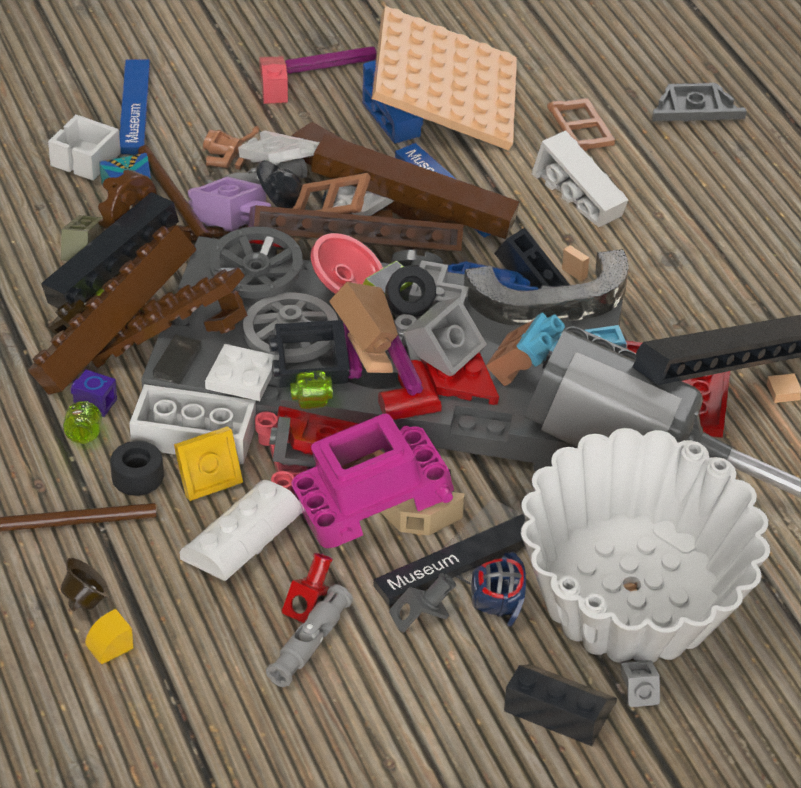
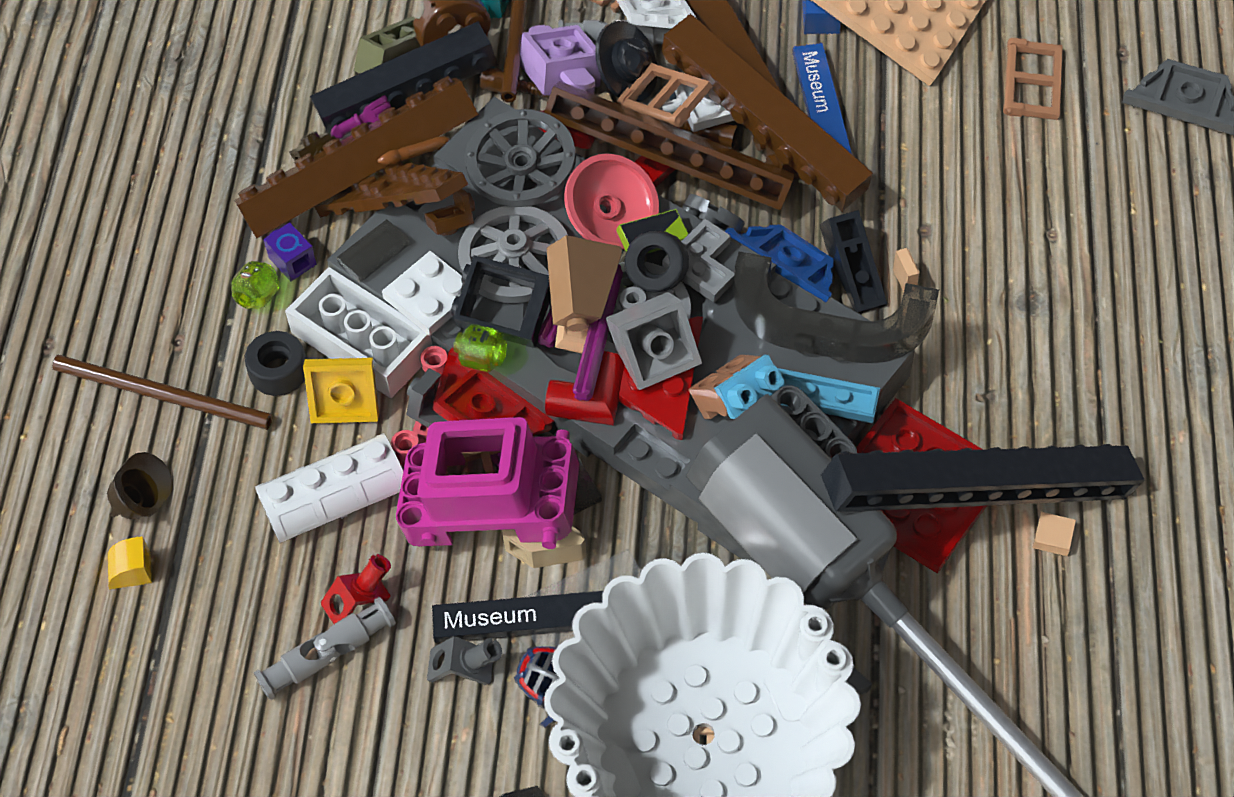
camera: 30 degrees right, 15 degrees up
(104, 275) = (369, 114): none -> magenta piece
(149, 294) = (417, 149): none -> dark orange piece
(578, 179) = (976, 160): white wedge -> none

